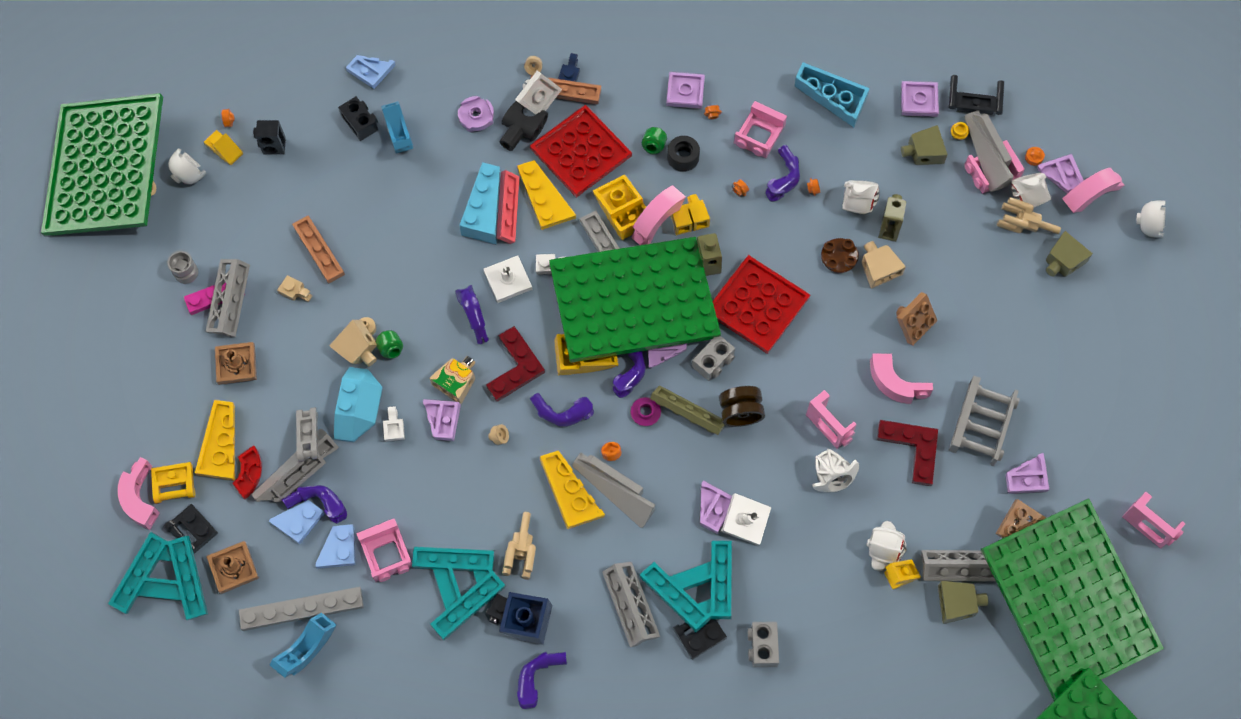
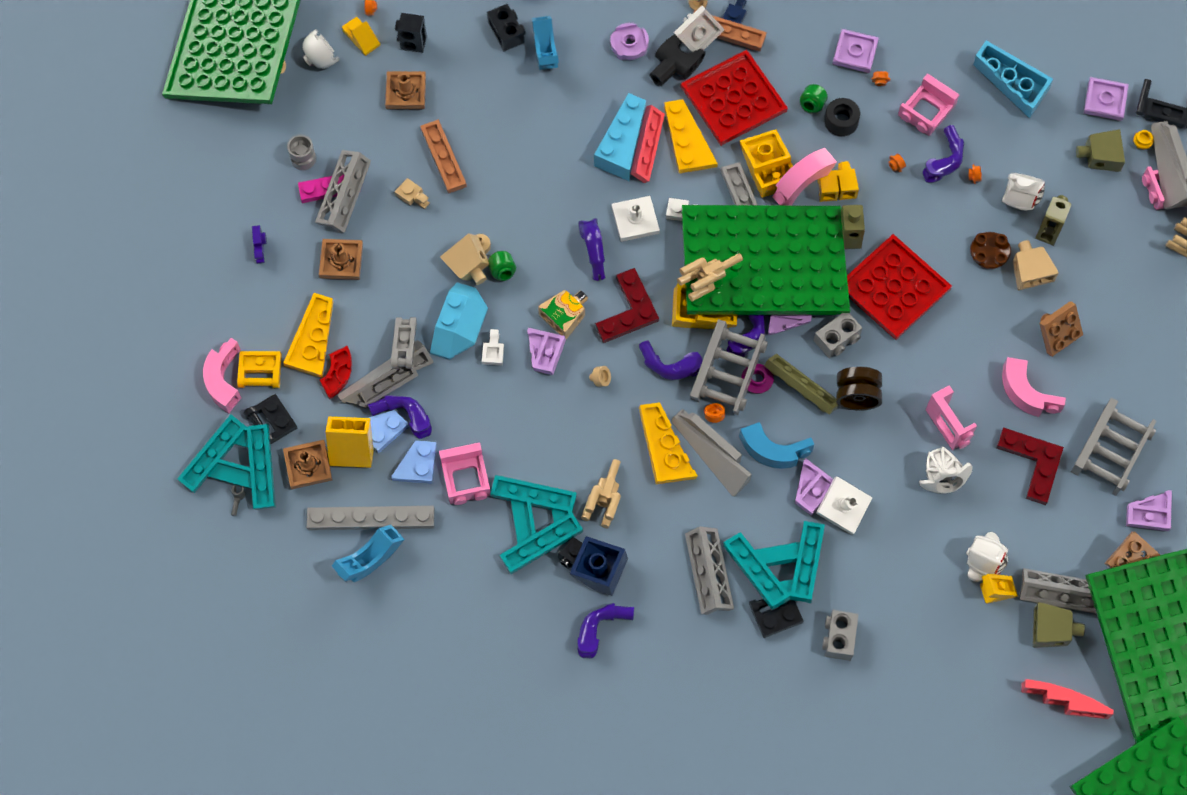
camera: 10 degrees right, 0 degrees up
(154, 357) = (259, 240): none -> dark purple plate
(170, 610) = (237, 497): none -> dark grey hand
(269, 539) = (349, 441): none -> yellow brick
(273, 187) = (406, 84): none -> medium nougat plate
(582, 322) = (706, 273): none -> tan plant
(602, 394) = (714, 352): none -> light grey fence
(668, 481) = (772, 454): none -> dark azure arch
(990, 670) = (1074, 702): none -> coral slope

